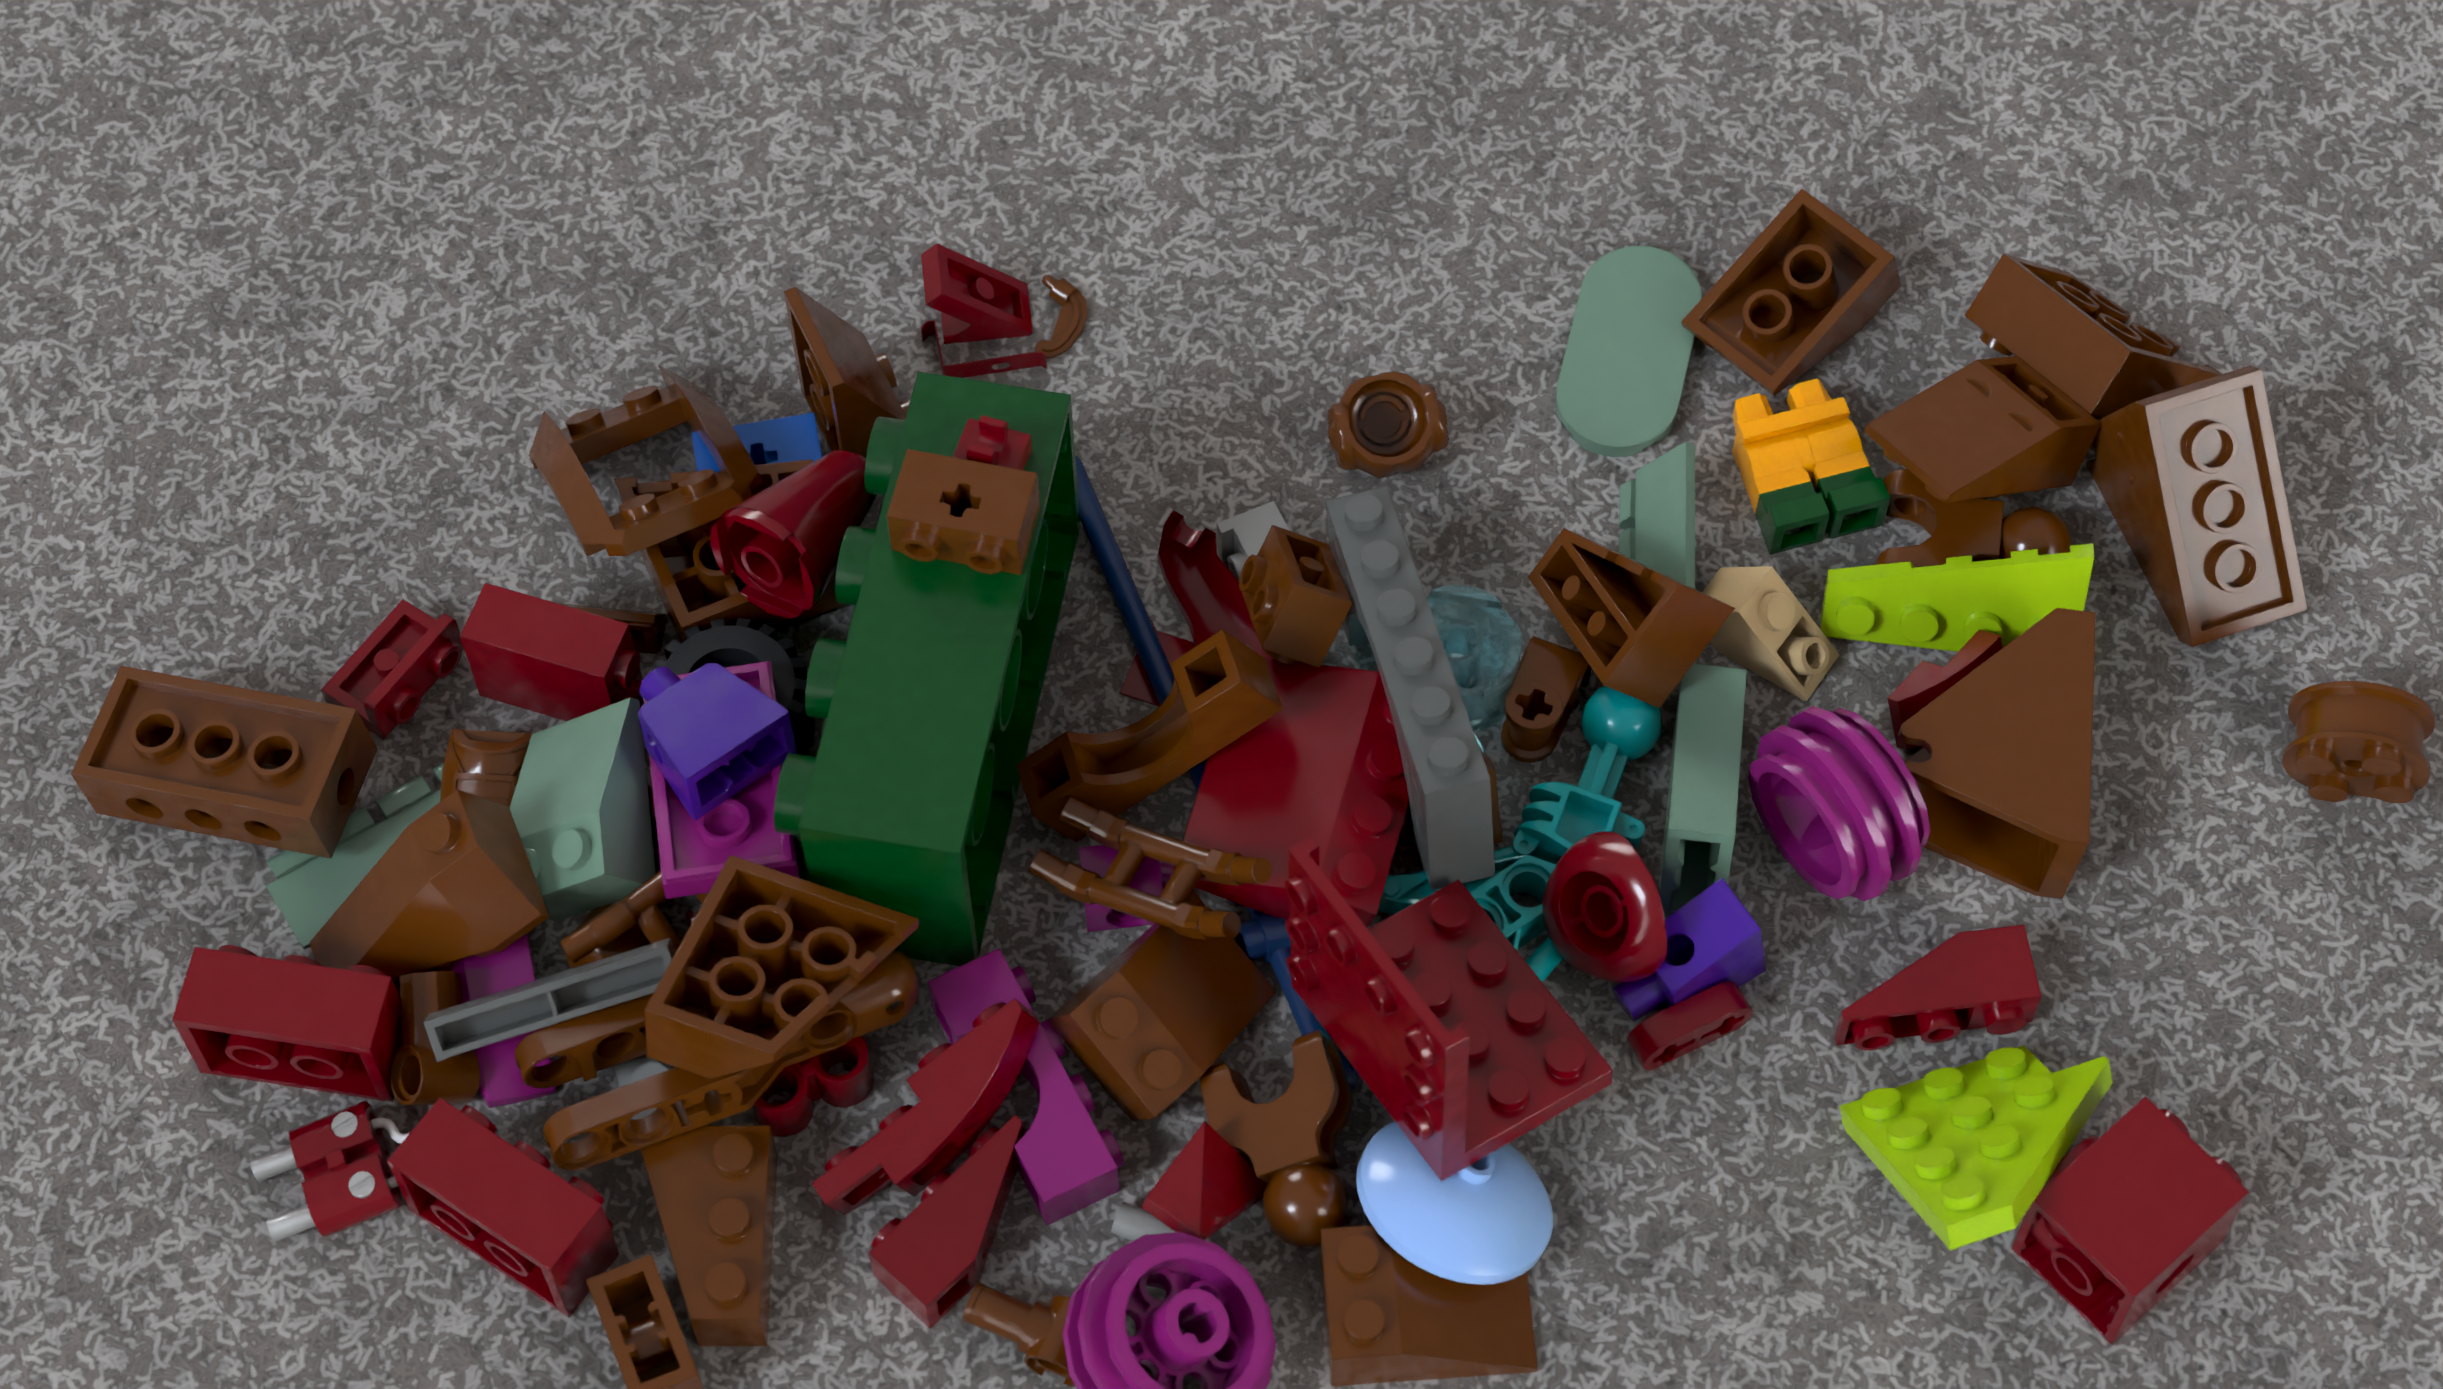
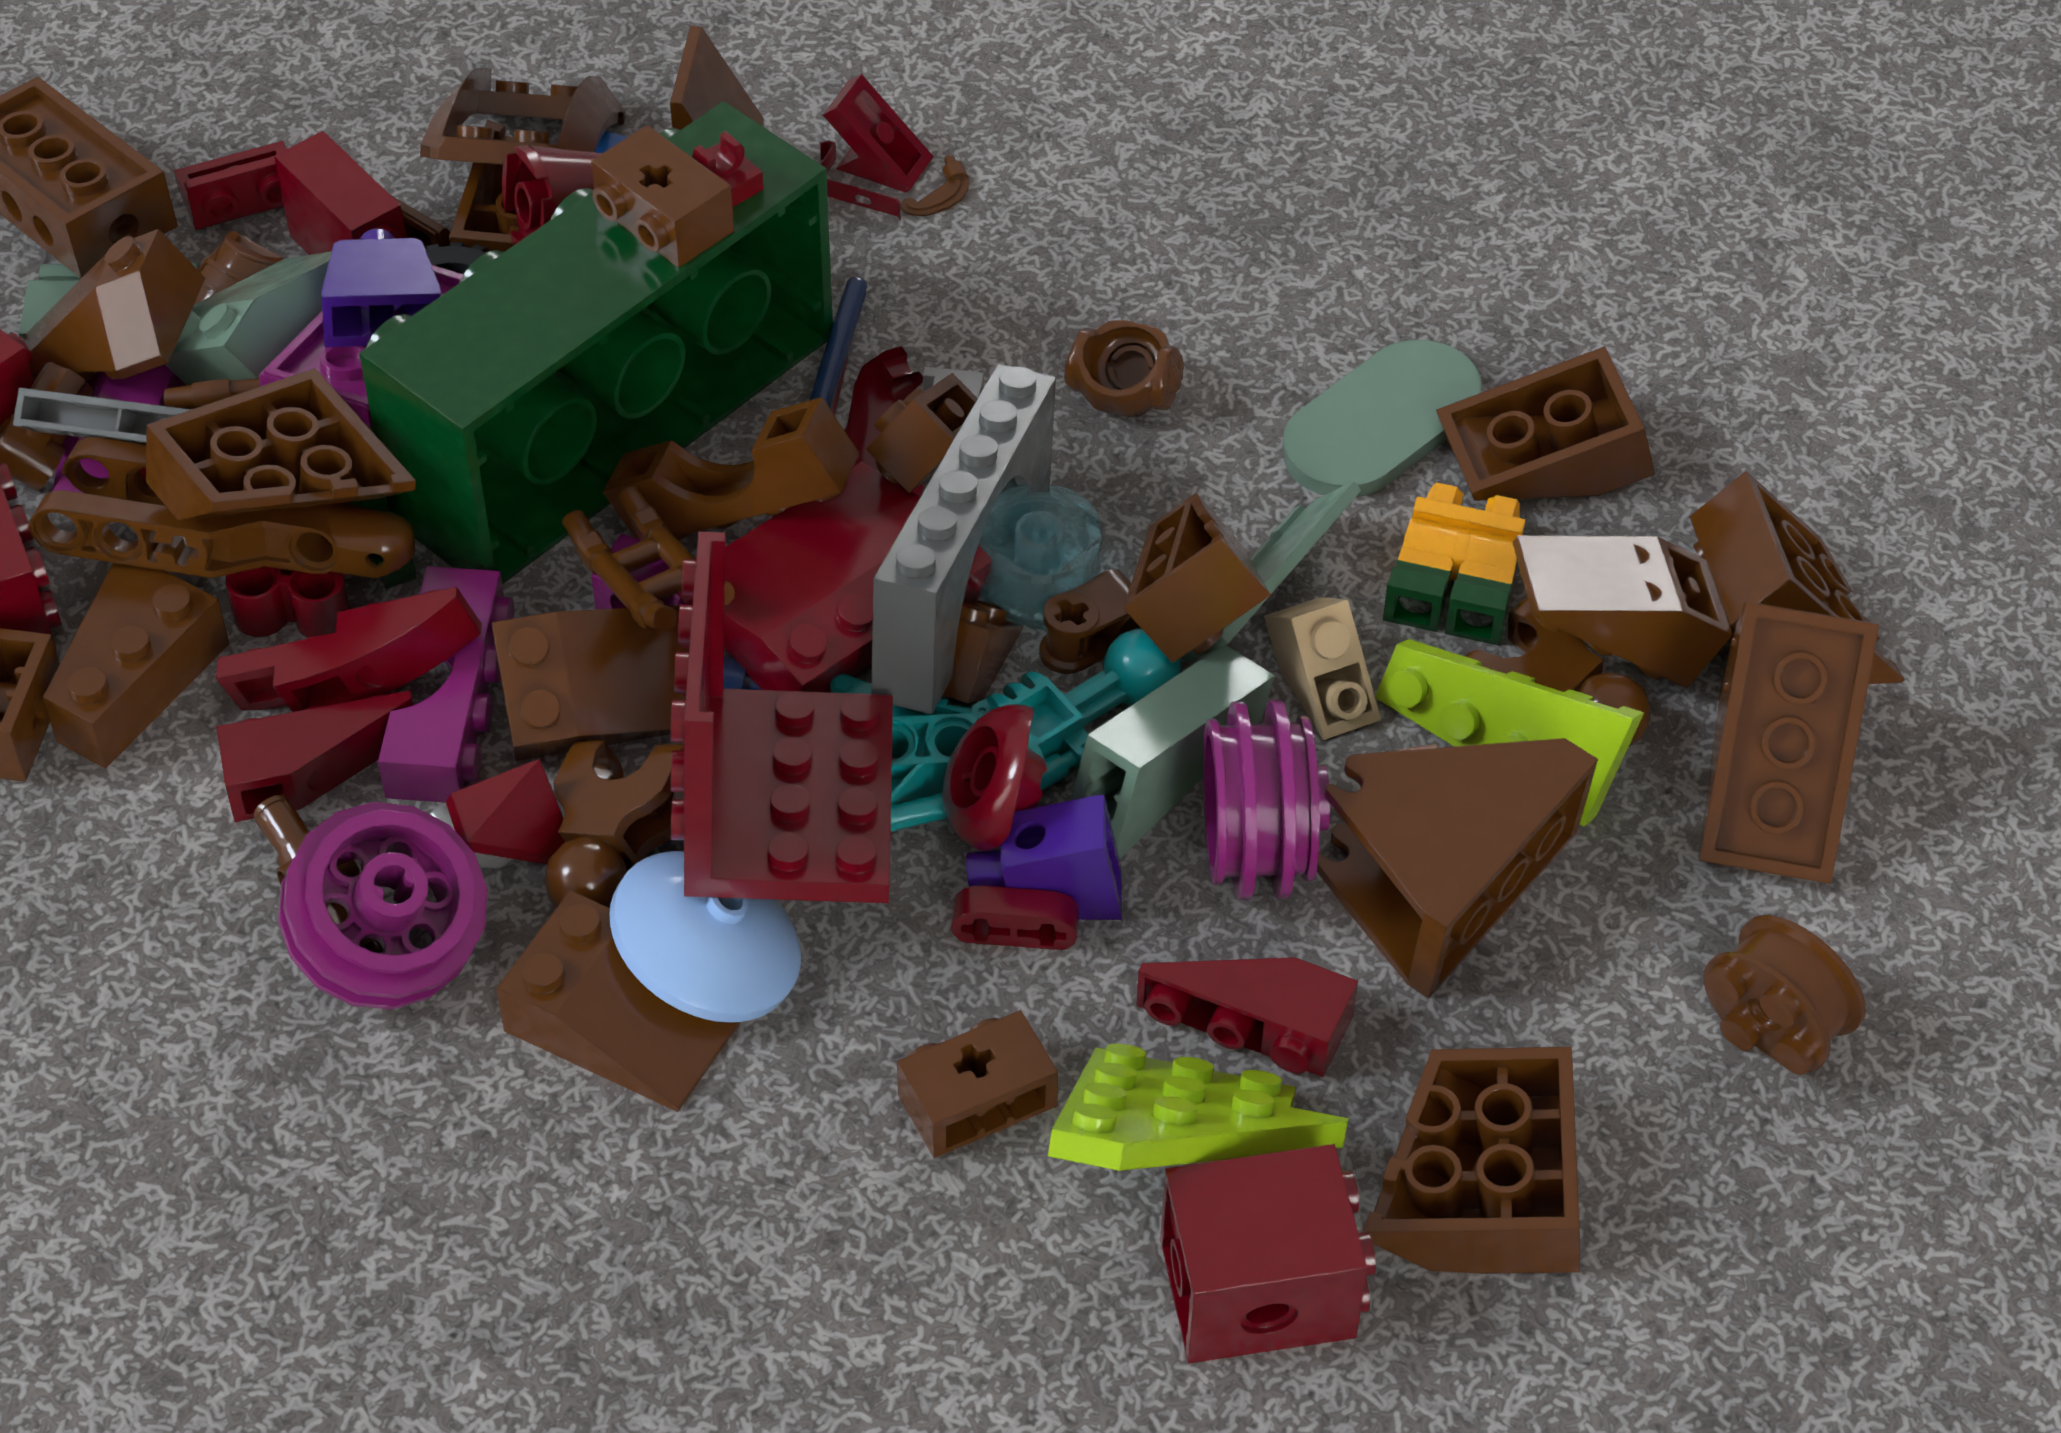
camera: 30 degrees right, 10 degrees down
(1766, 1234) = (977, 1083): none -> reddish brown brick
(2240, 1026) = (1486, 1166): none -> reddish brown wedge

